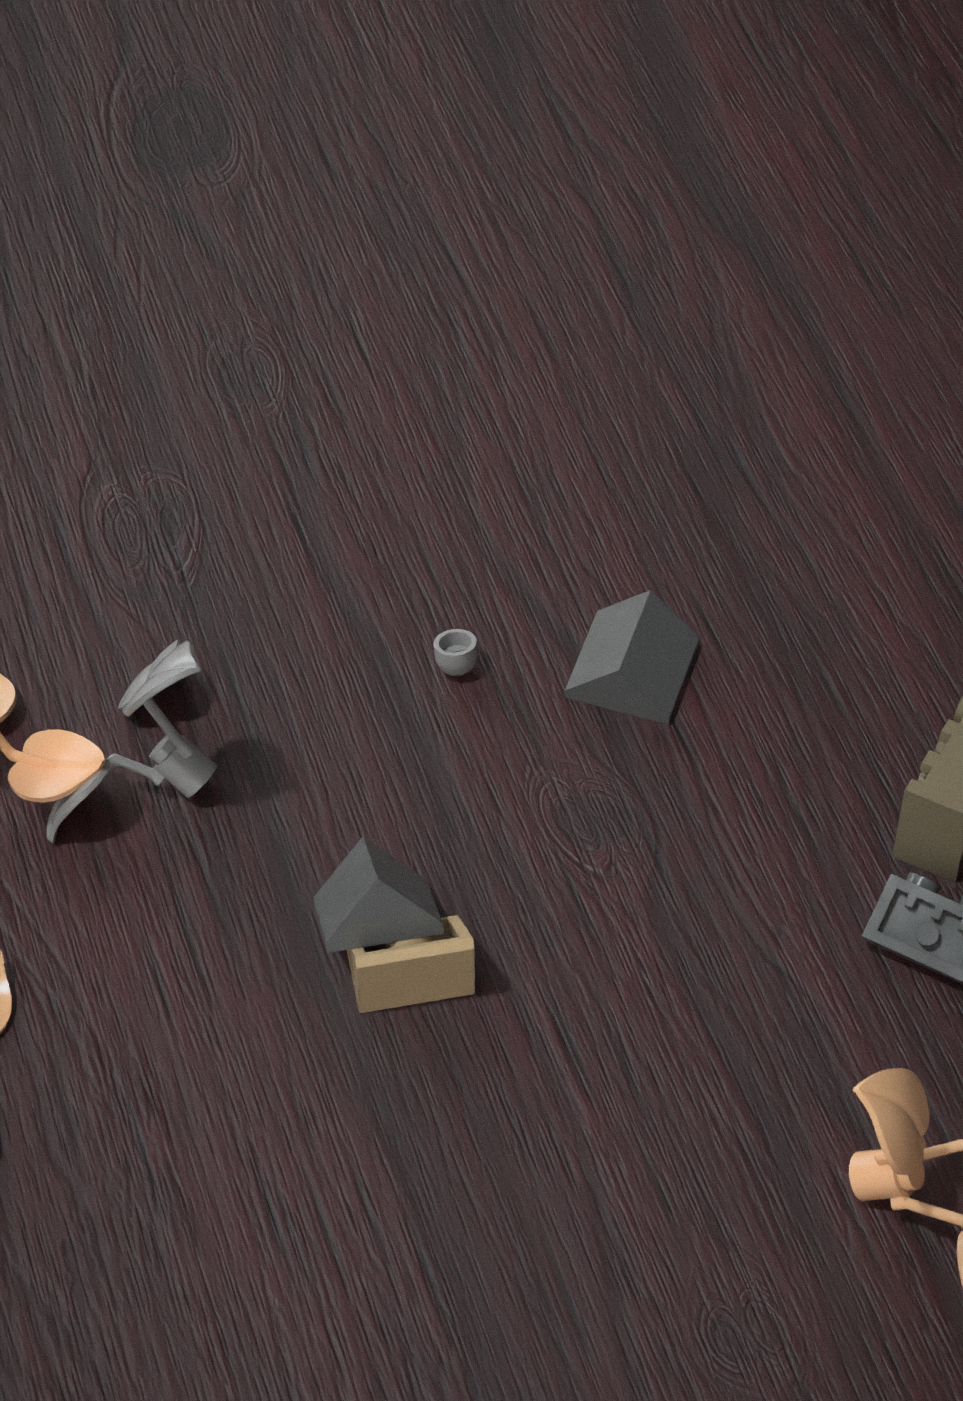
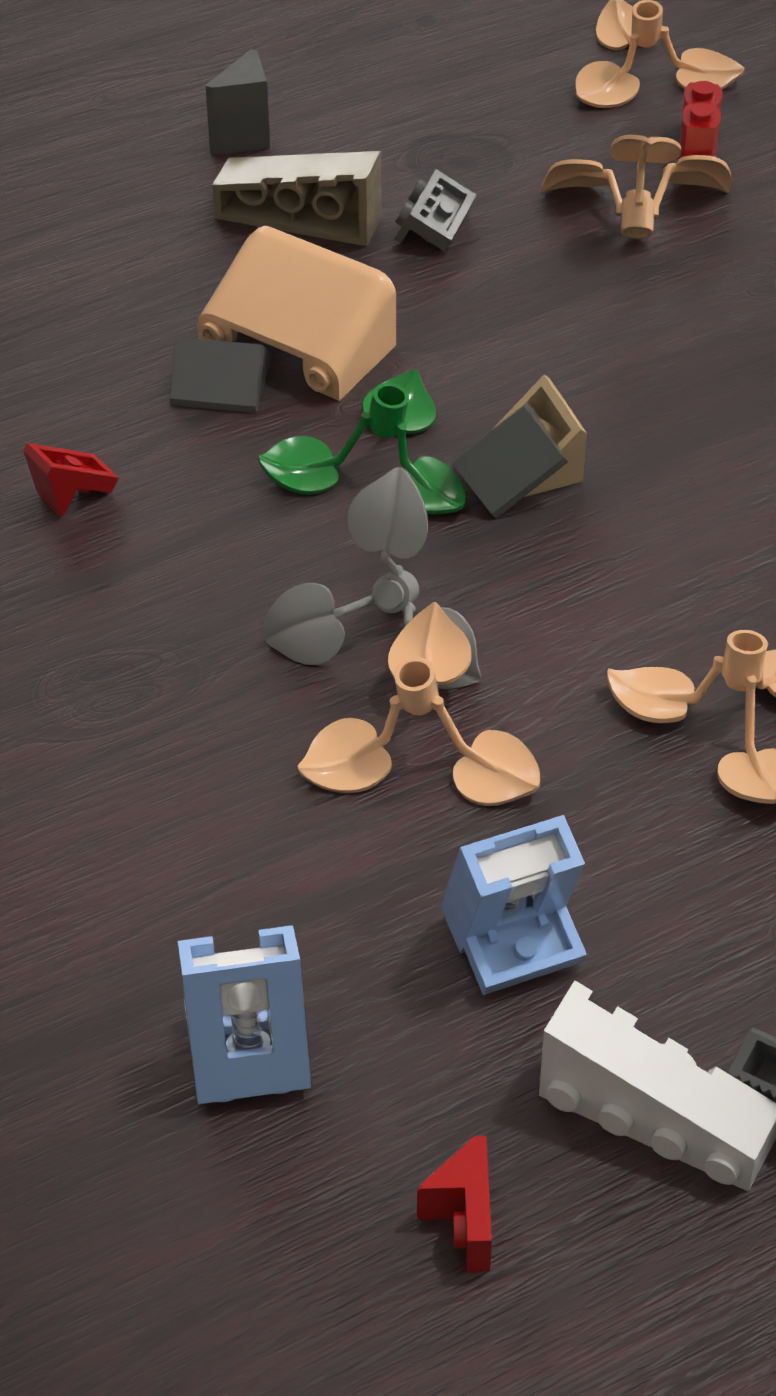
camera: 100 degrees left, 5 degrees down
(440, 730) = (390, 409): none -> green plant
(454, 487) = (62, 472): none -> red slope
(456, 651) = (232, 450): light grey hinge -> none
(692, 730) = (308, 305): none -> light nougat windscreen

